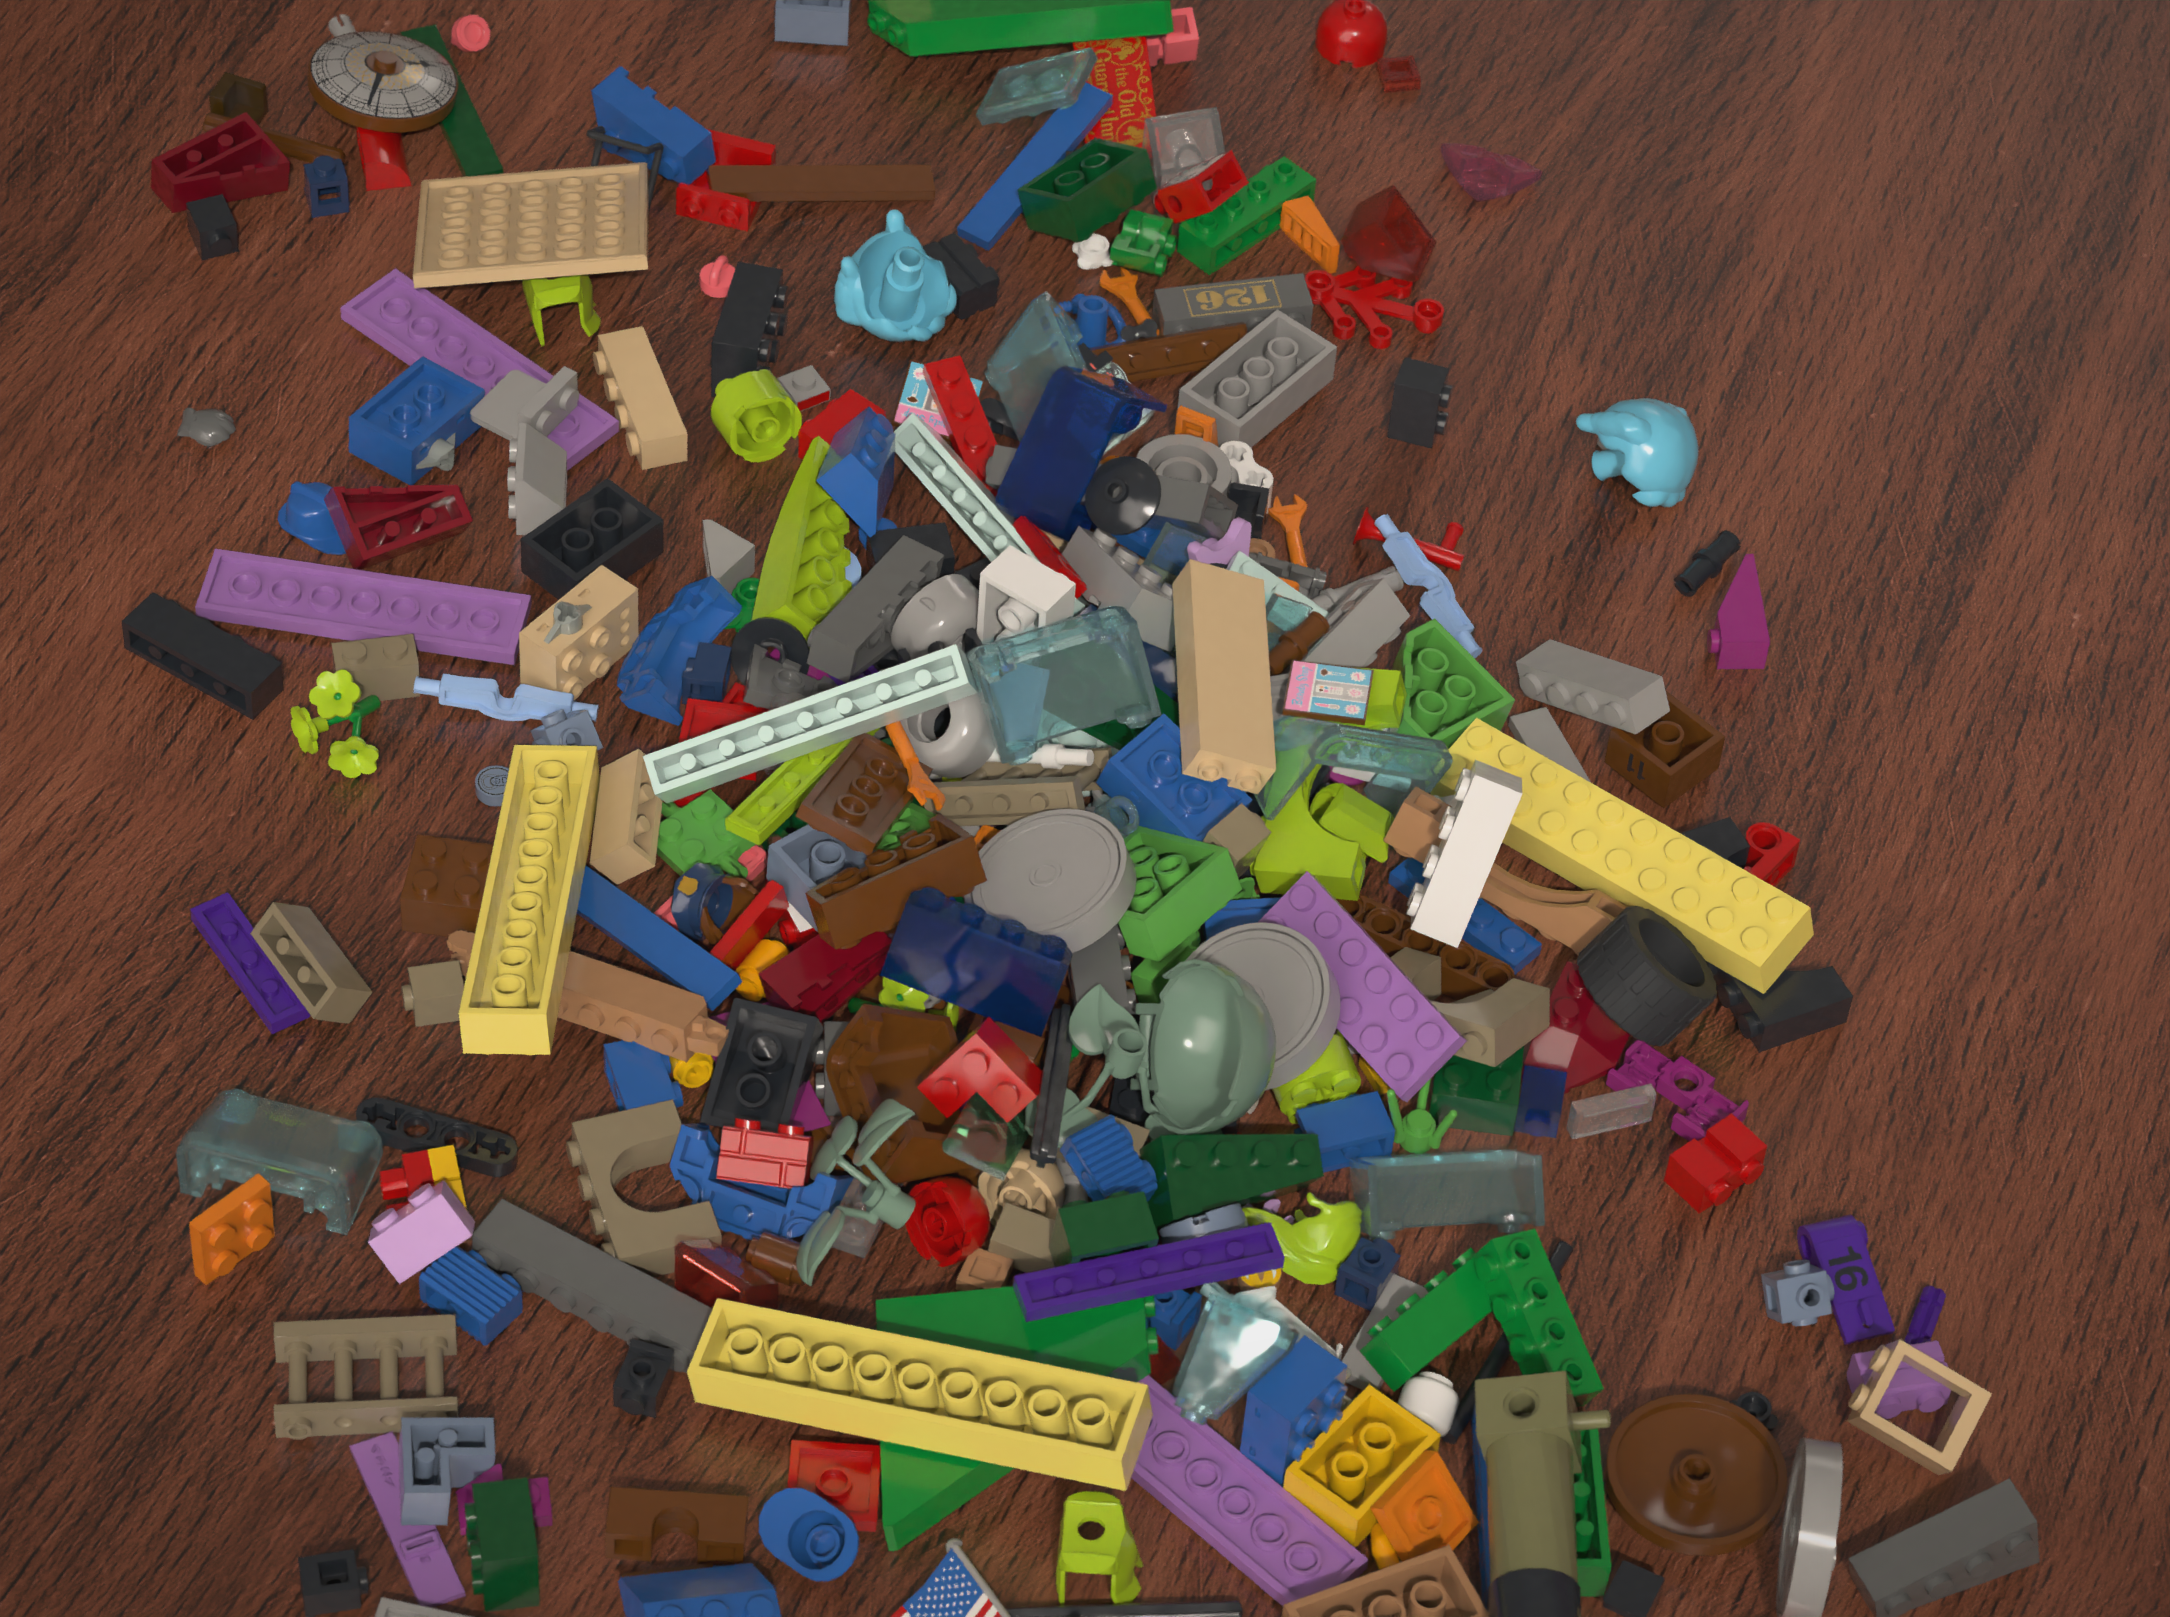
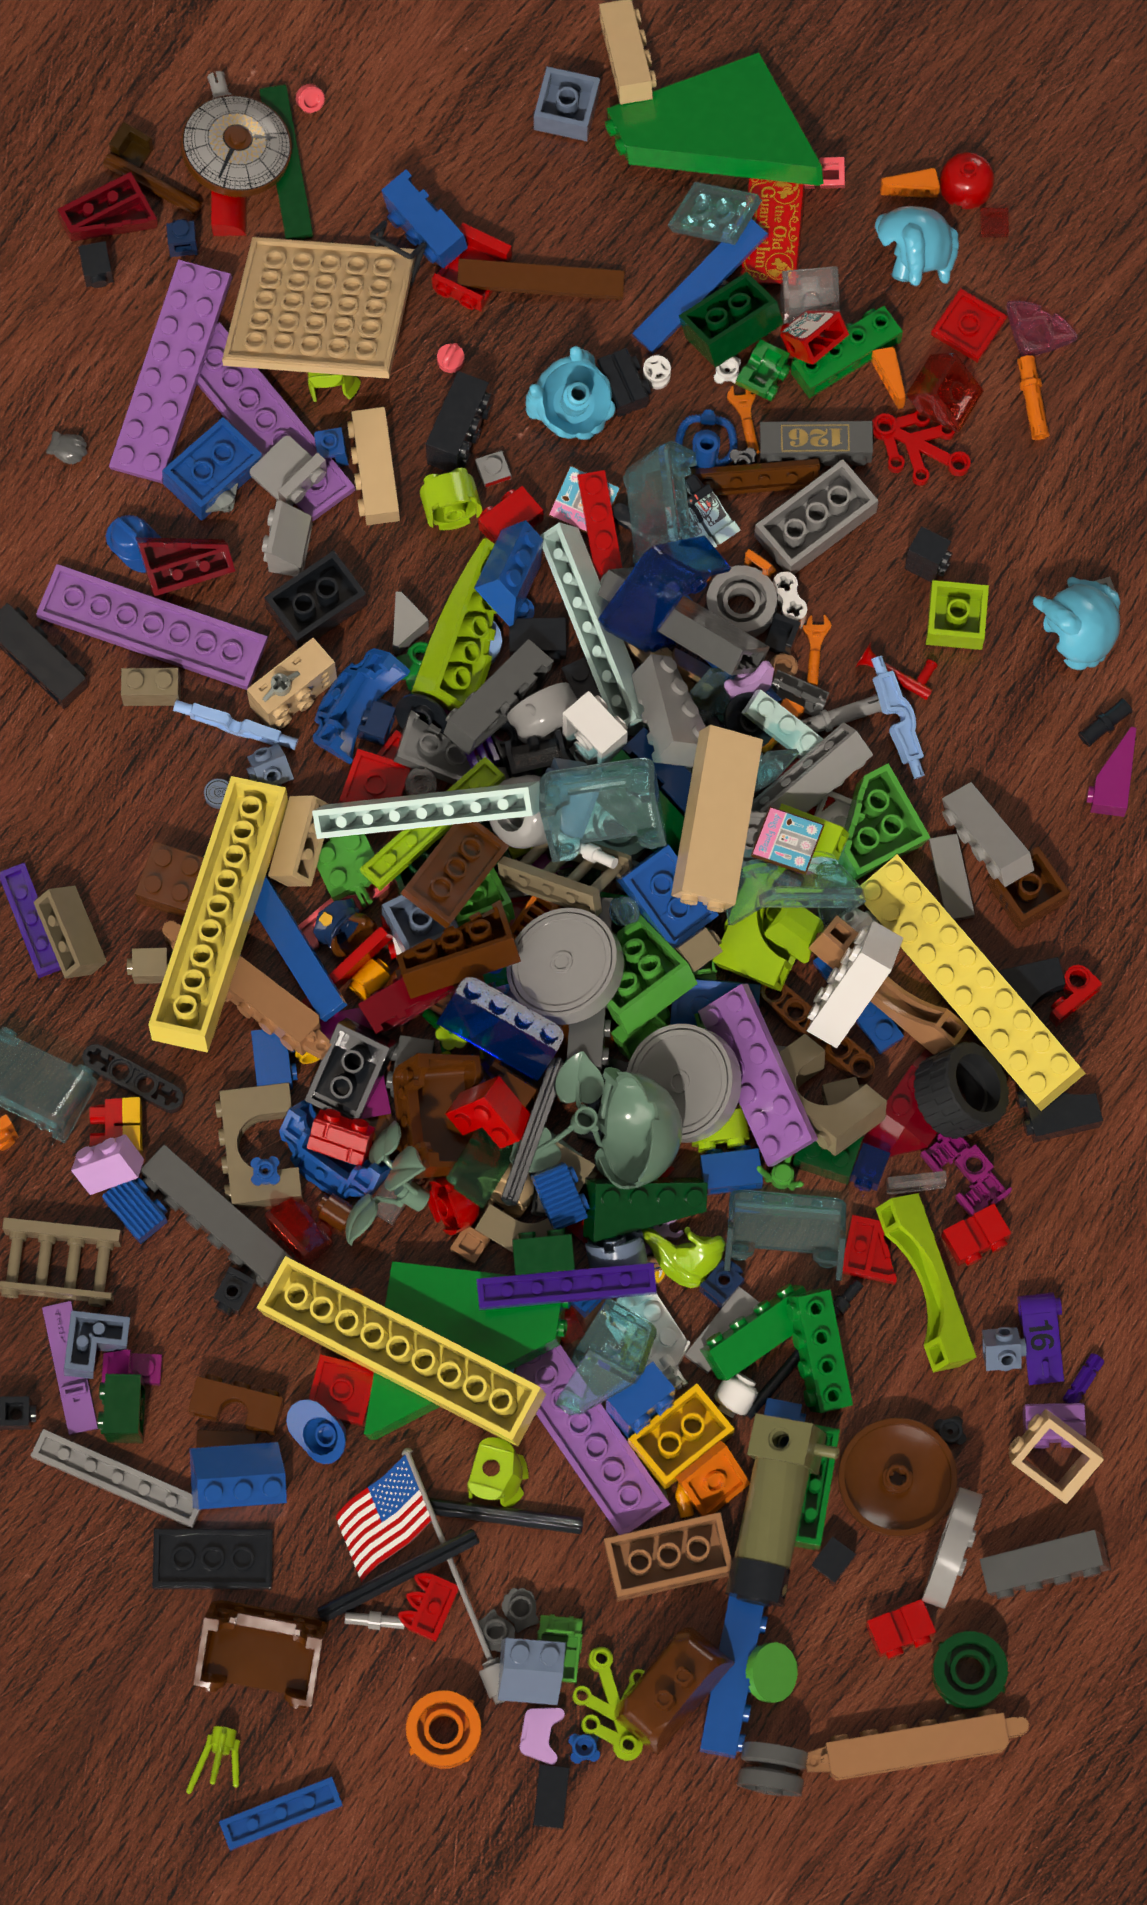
camera: 15 degrees right, 25 degrees up
(335, 703) = (113, 727): lime plant -> none
(337, 325) = (170, 371): none -> medium lavender plate
(587, 374) = (332, 444): none -> blue bracket
(662, 1216) = (269, 1178): none -> blue plate
(919, 782) = (495, 863): orange piece -> none
(1004, 258) = (654, 366): none -> white wheel
(1047, 552) = (625, 676): red tile -> none
(1135, 504) = (695, 637): black dish -> none
(1294, 41) = (912, 184): none -> orange slope
(1295, 643) = (779, 780): reddish brown pin -> none
(1310, 82) = (922, 241): none -> medium azure piece
(1408, 170) = (969, 325): none -> red tile
(1475, 464) = (957, 615): none -> lime brick
(1498, 227) = (1031, 385): none -> orange pin
(1572, 1208) = (867, 1251): none -> red wing
(1708, 1281) = (908, 1227): none -> lime arch

